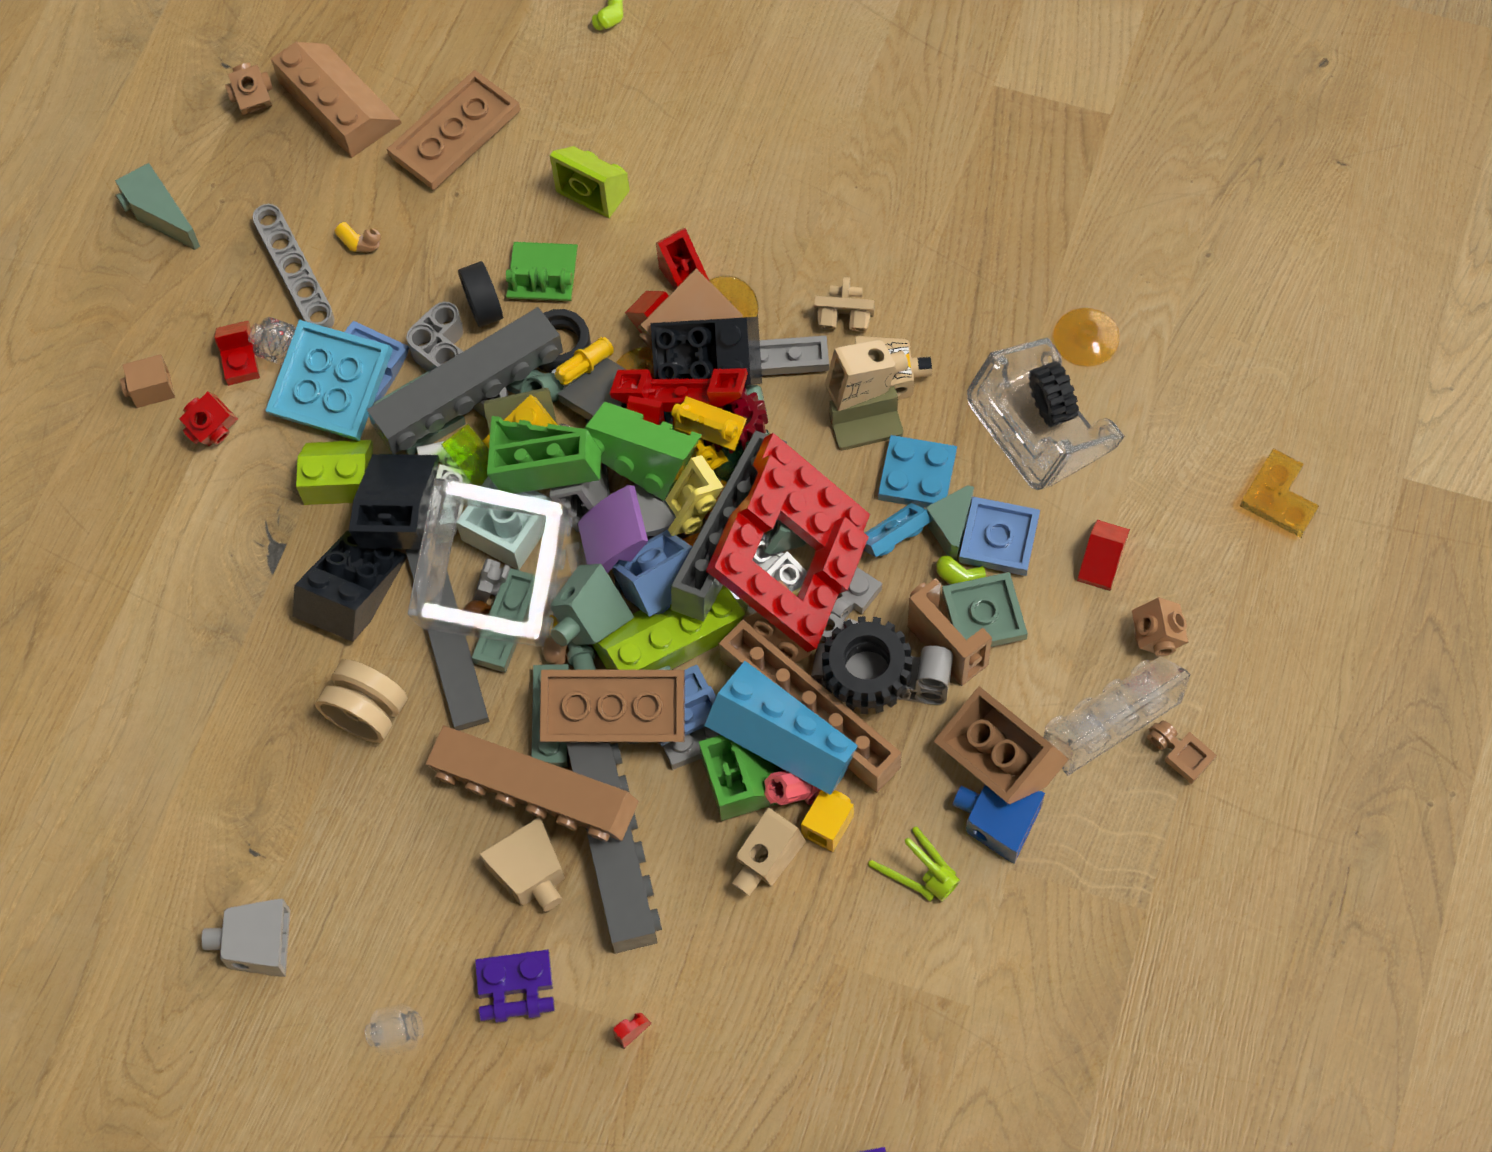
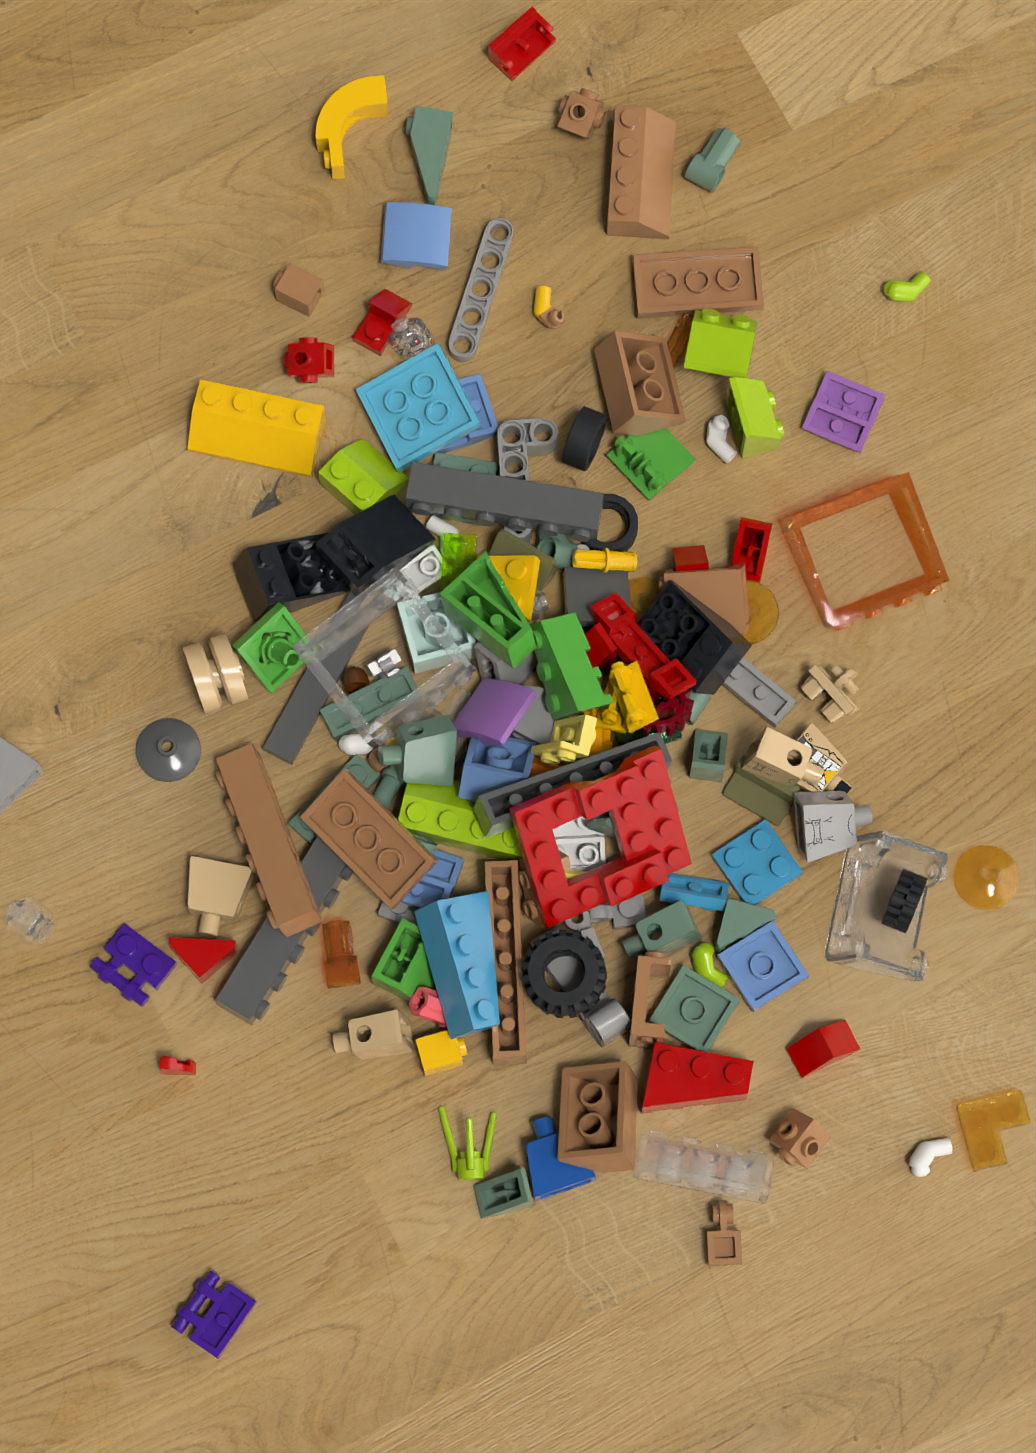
camera: 40 degrees right, 10 degrees up
(59, 227) = (348, 105): none -> yellow arch
(154, 84) = (521, 44): none -> red hinge
(203, 271) = (416, 235): none -> medium blue slope
(212, 503) = (256, 428): none -> yellow slope
(381, 47) = (709, 166): none -> sand green piece
(381, 814) = (173, 764): none -> dark grey dish
(398, 644) = (277, 654): none -> bright green plate
(480, 181) = (680, 337): none -> clear orange axle
(481, 226) = (639, 383): none -> medium nougat slope
(514, 147) = (720, 343): none -> lime slope
(525, 659) = (354, 744): none -> white arm
(564, 924) = (203, 956): none -> red slope
(577, 218) = (717, 436): none -> white arm
(650, 125) = (843, 411): none -> medium lavender slope
(682, 827) = (340, 961): none -> clear orange piece
(779, 146) = (916, 526): none -> clear orange windscreen
(804, 430) = (708, 755): none -> sand green slope
(907, 563) = (676, 927): none -> sand green torso
(939, 394) = (827, 822): none -> light grey torso
(989, 874) = (504, 1194): none -> sand green slope
(1036, 657) = (694, 1078): none -> red wedge
(1255, 555) = (925, 1154): none -> white arm

